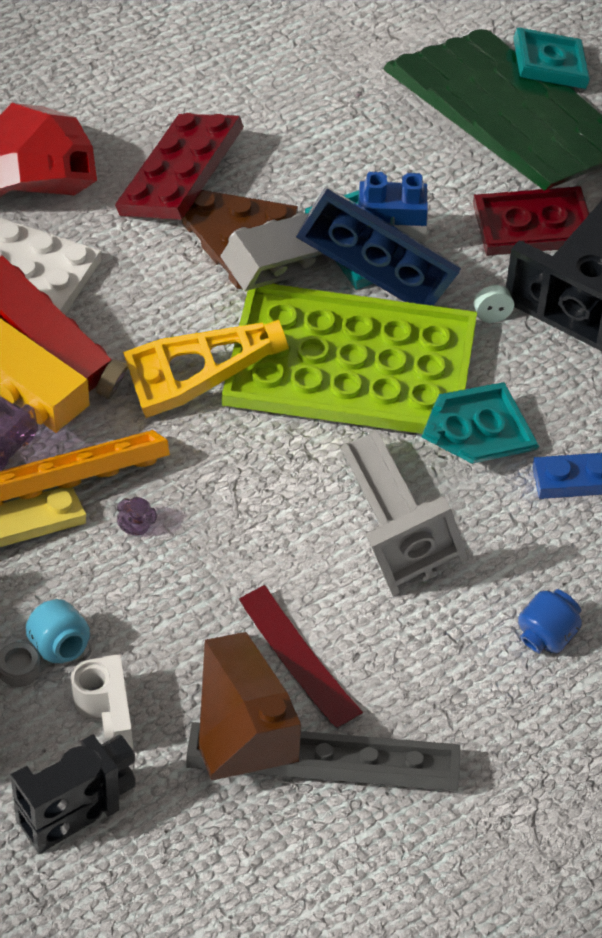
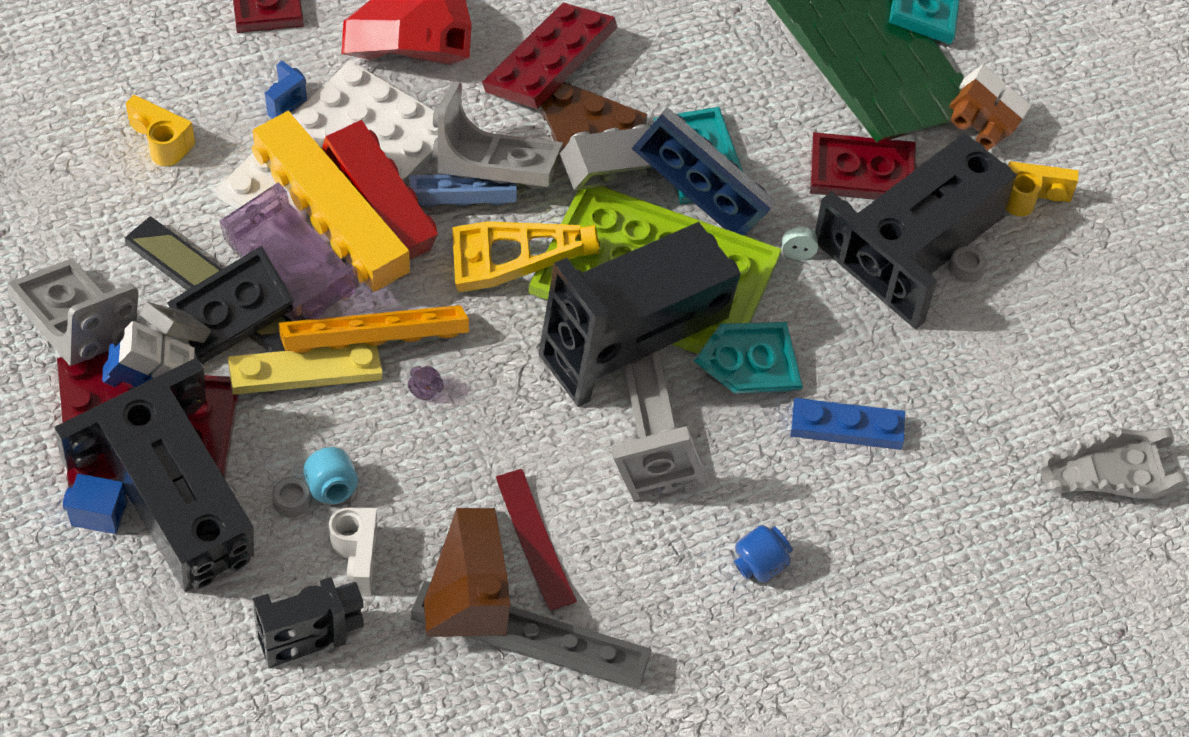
camera: 10 degrees right, 5 degrees up
(111, 378) = (435, 250): dark tan tile -> none
(127, 312) = (461, 192): none -> medium blue plate
(129, 274) = (474, 153): none -> light grey bracket
(343, 393) = (633, 306): none -> black brick
(402, 201) = (737, 130): blue hips -> none

